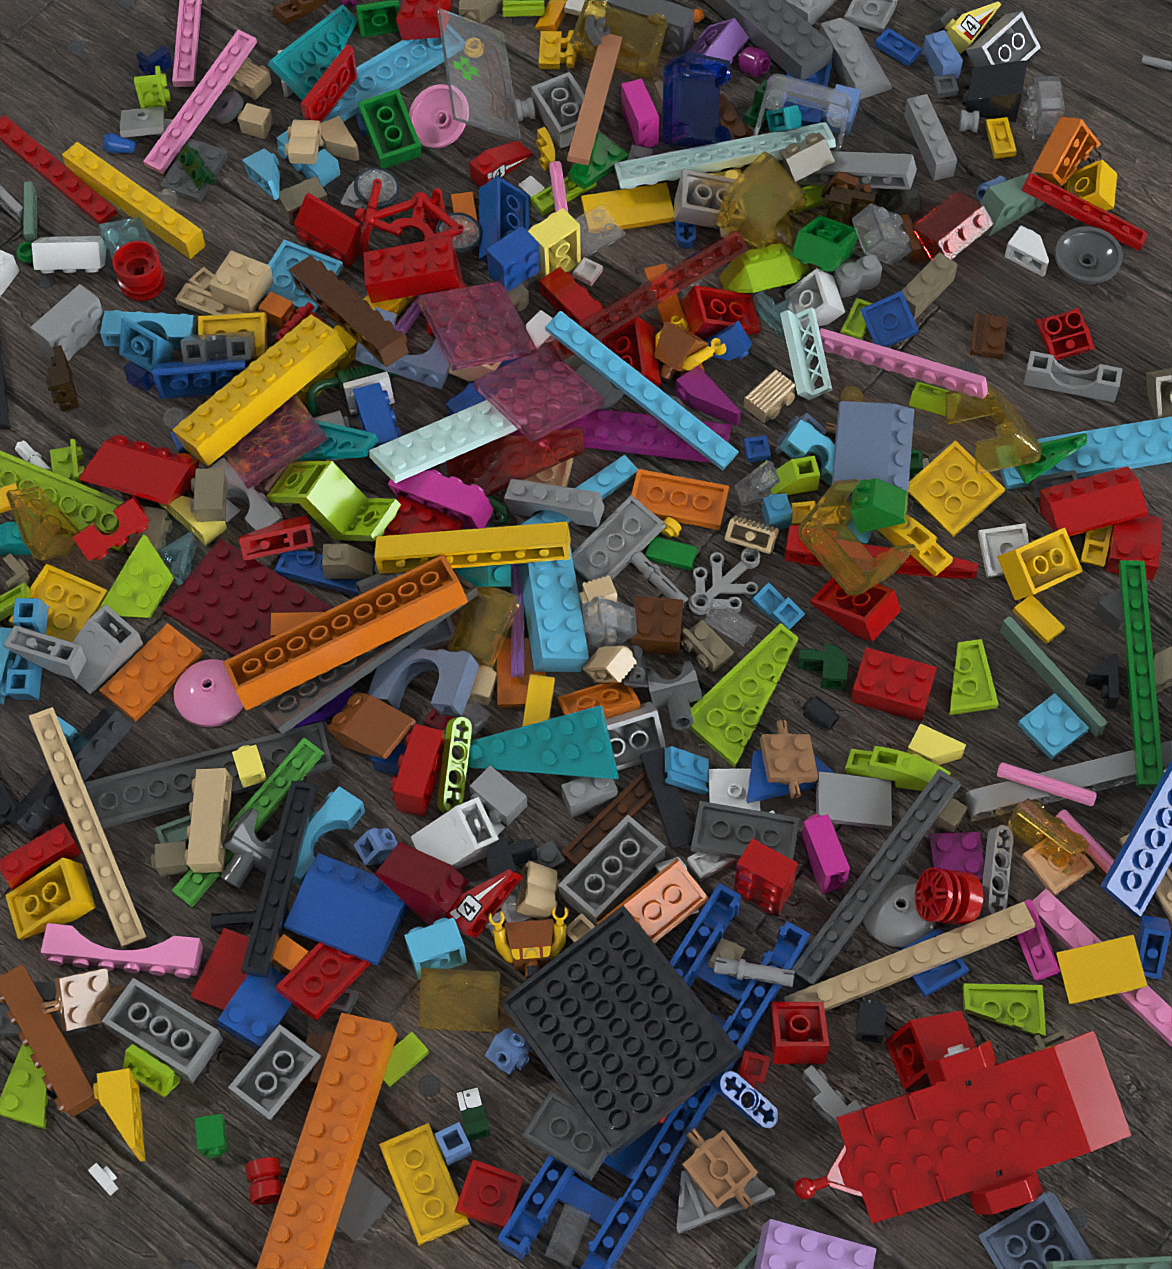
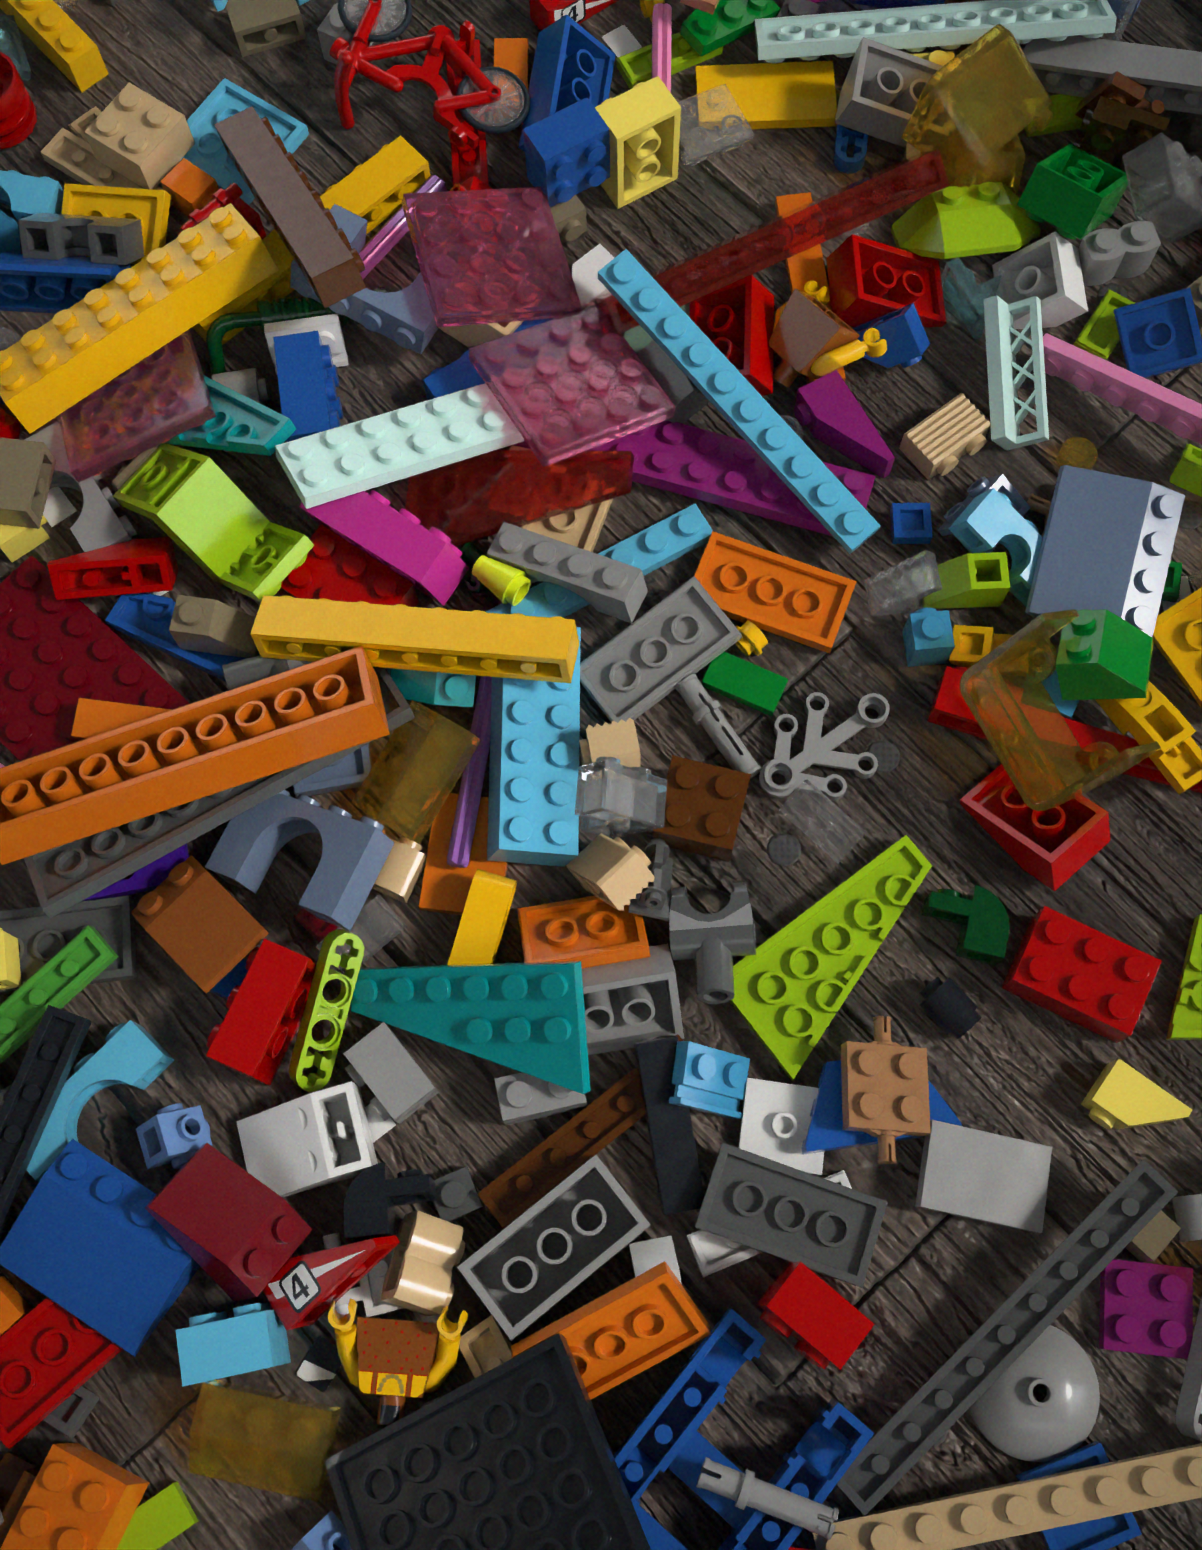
camera: 10 degrees right, 10 degrees up
(328, 230) = (291, 71): red slope -> none
(411, 269) = (403, 149): red brick -> none
(485, 959) = (320, 1364): none -> black sticker
(515, 512) = (502, 580): none -> neon yellow cone
(567, 295) = (647, 225): red brick -> none
(587, 271) = (686, 190): white tile -> none
(706, 646) = (777, 854): dark tan bracket -> none
(727, 950) = (726, 1439): dark tan bracket -> none
(751, 534) = (881, 672): tan brick -> none
(777, 607) = (904, 803): dark azure slope -> none
(807, 156) = (1067, 40): brick -> none
(824, 853) = (922, 1276): dark pink brick -> none
(894, 765) = (1065, 1128): lime slope -> none
(948, 896) = (1128, 1401): red wheel -> none

